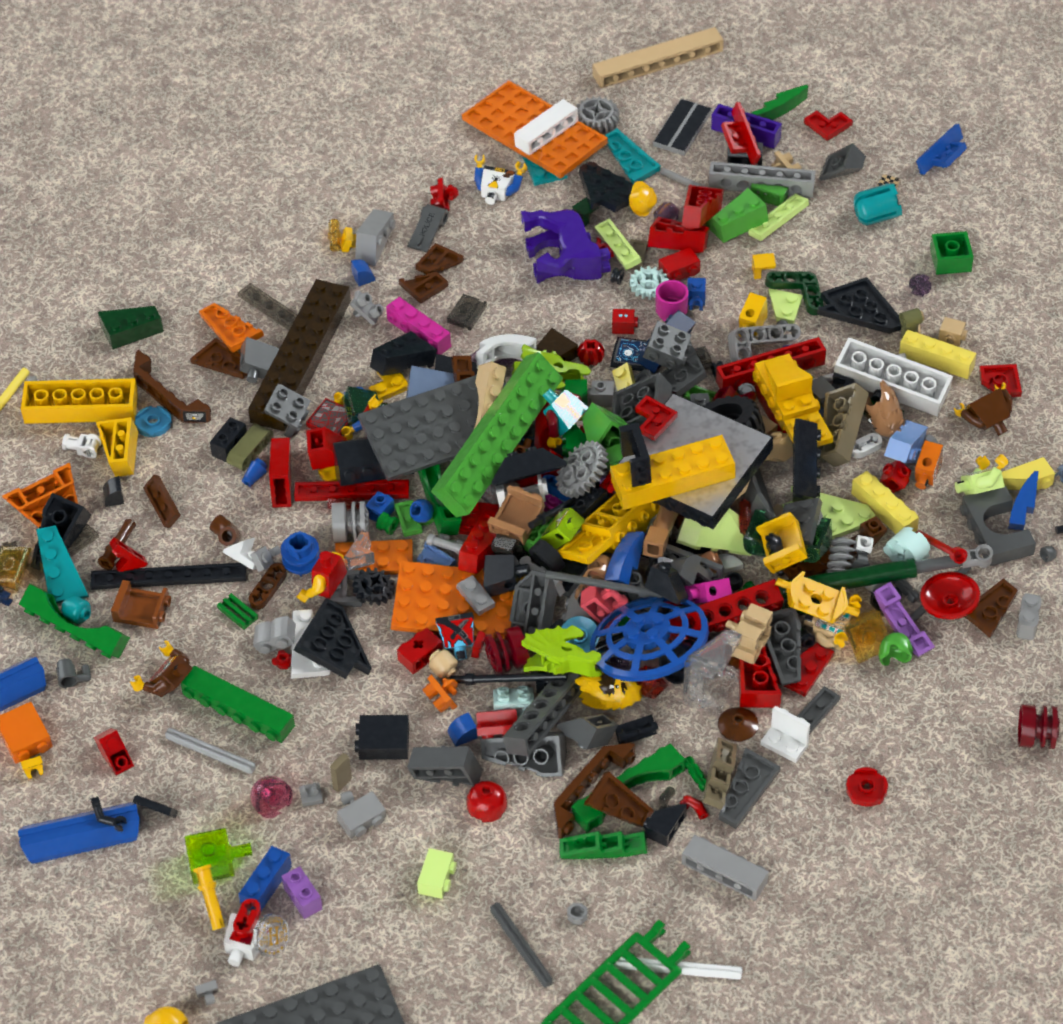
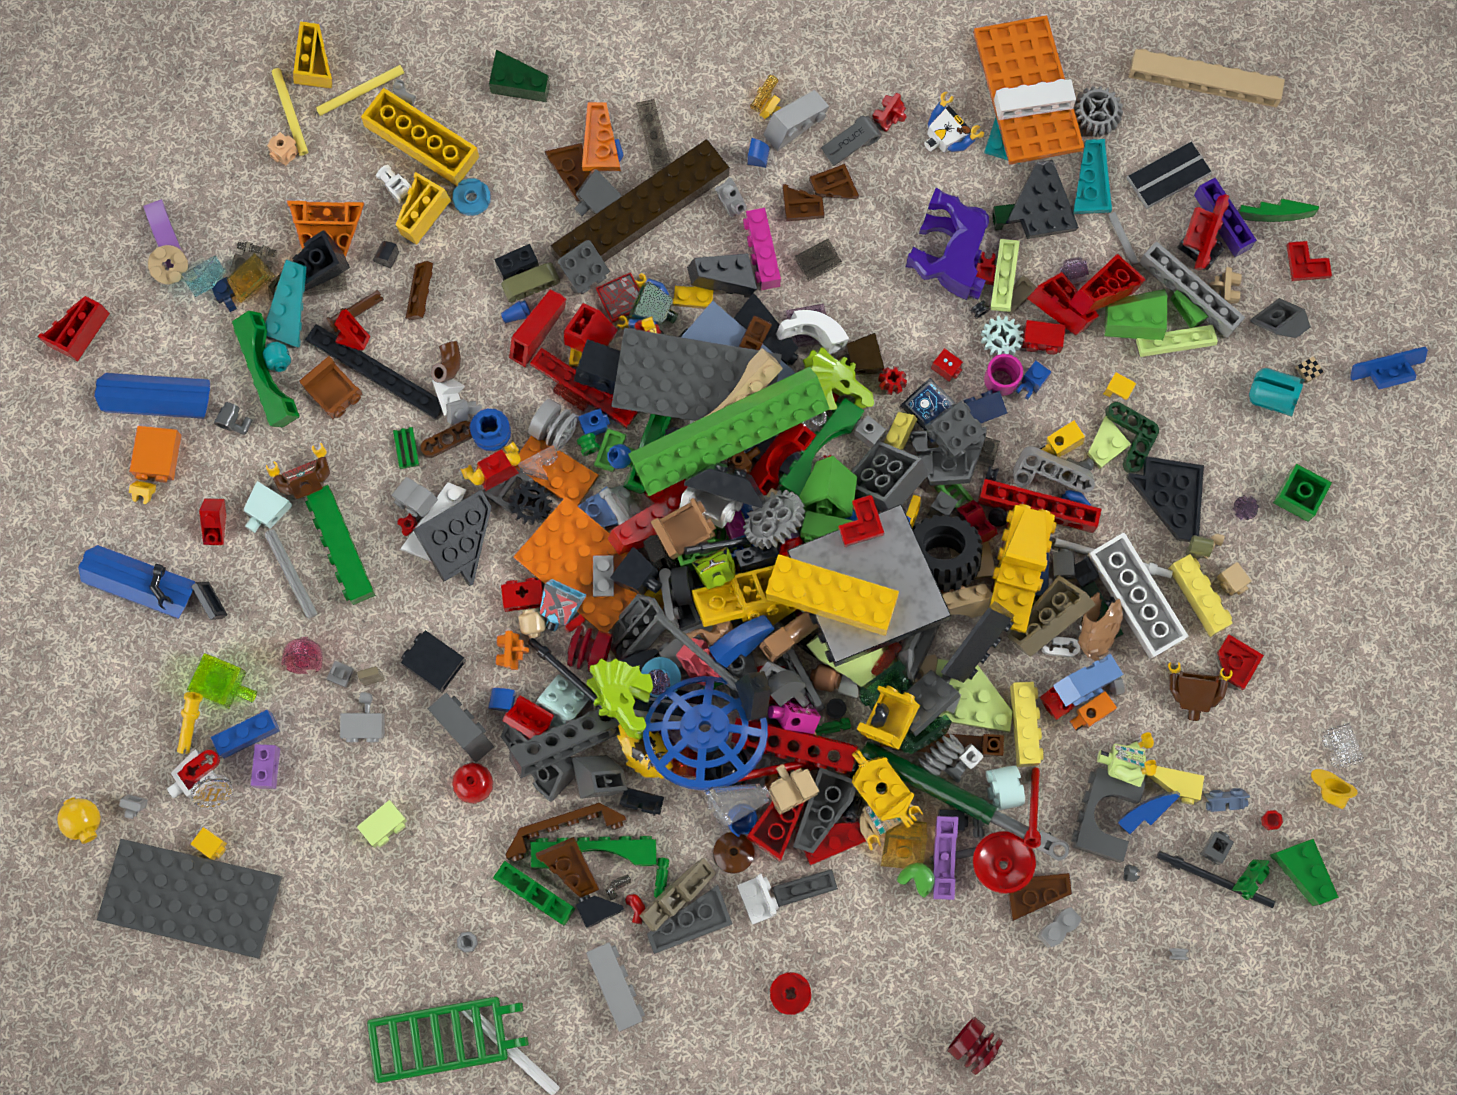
camera: 30 degrees right, 25 degrees up
(151, 715) = (265, 507): none -> light aqua torso
(193, 413) = (498, 133): reddish brown slope -> none
(298, 977) = (209, 844): none -> yellow brick
(521, 945) = (403, 938): dark grey axle -> none
(562, 413) = (803, 445): torso -> none
(587, 634) = (660, 681): none -> clear purple gear
(633, 444) = (808, 552): black panel -> none
(642, 199) = (1067, 236): yellow piece -> none
(725, 690) = (744, 825): none -> blue hair

